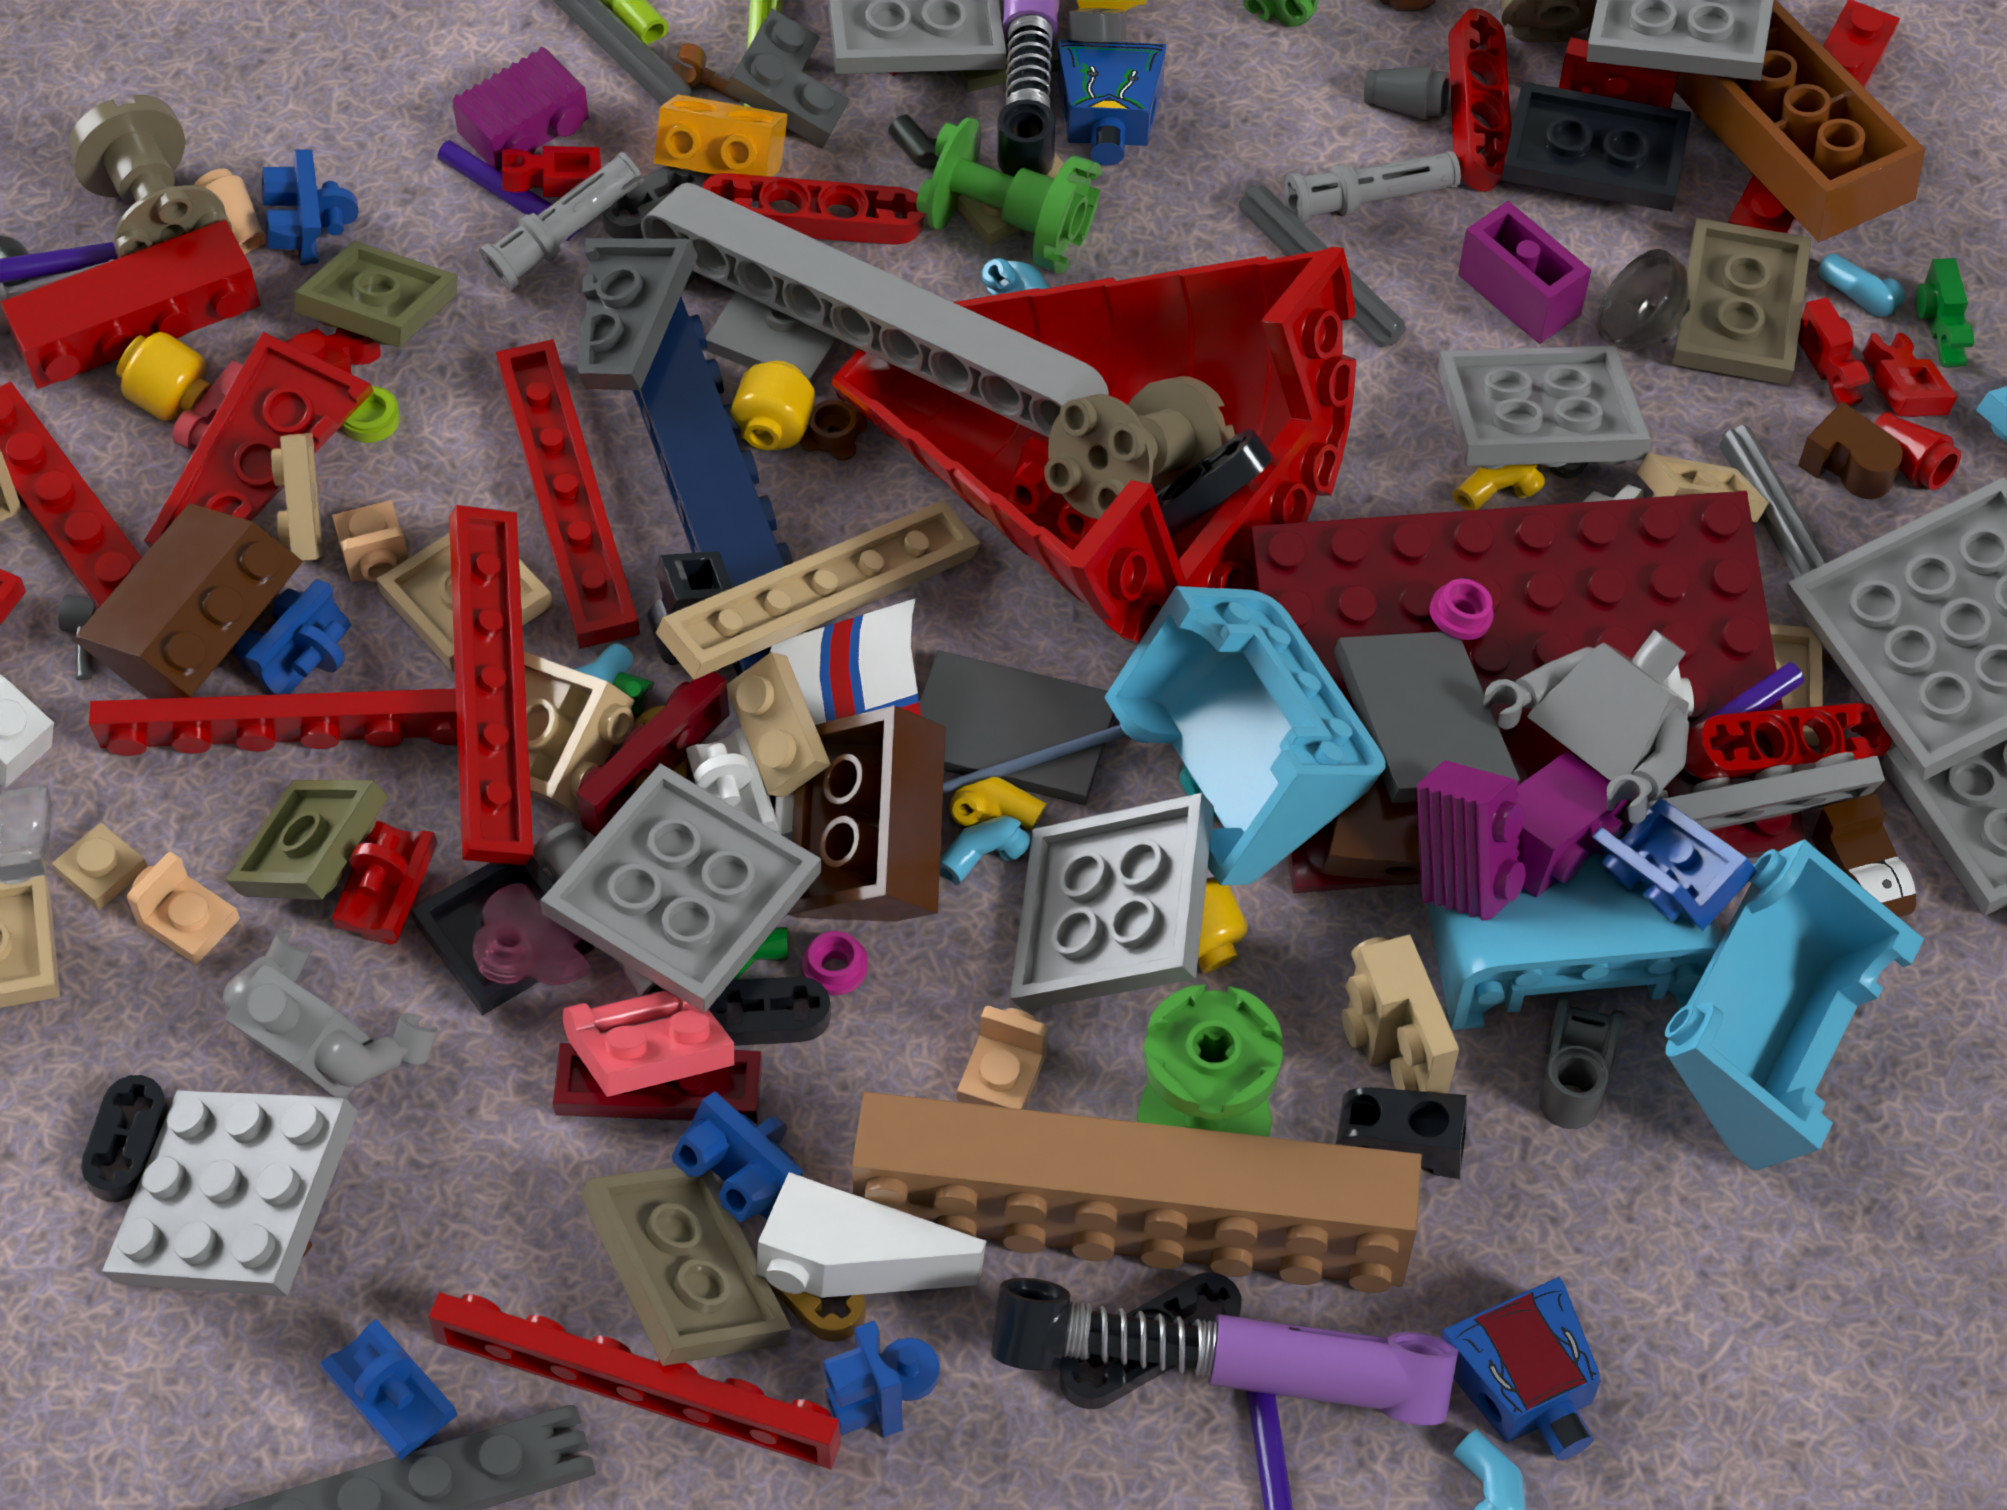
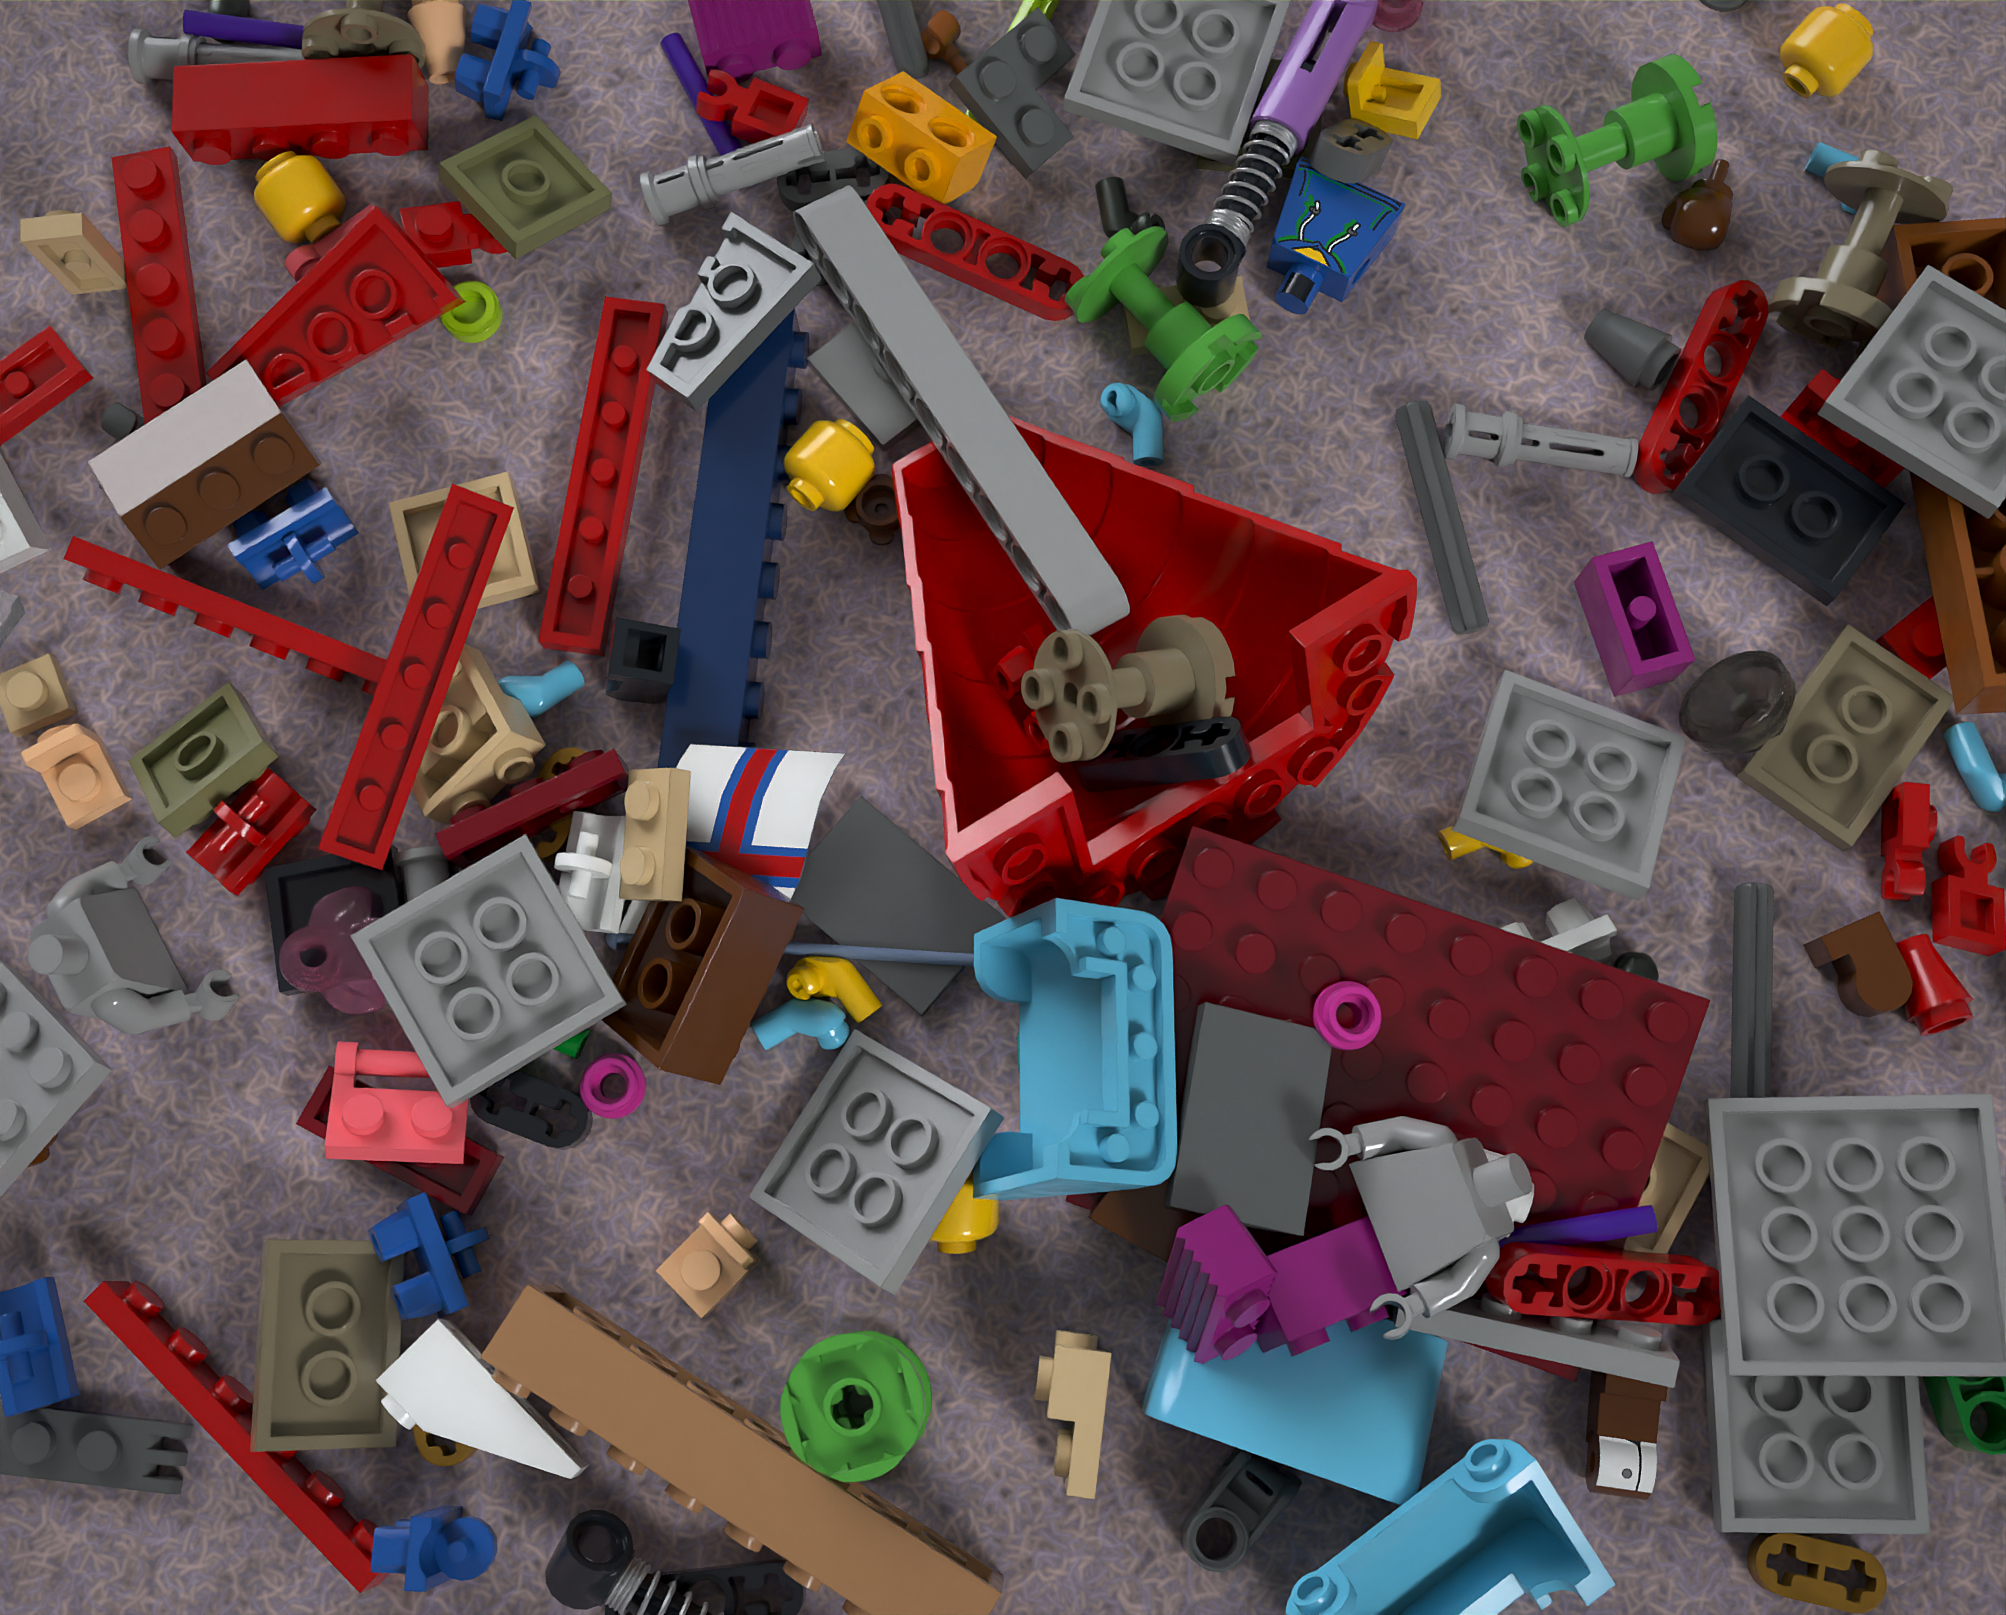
camera: 30 degrees right, 20 degrees up
(296, 470) = (350, 392): tan plate -> none
(370, 540) = (409, 455): light nougat bracket -> none
(635, 688) = (559, 721): green hand -> none
(816, 589) = (745, 705): tan plate -> none
(1409, 1123) = (1033, 1505): black leg -> none
(1677, 863) = (1405, 1402): blue bracket -> none
(1684, 477) = (1682, 946): tan plate -> none

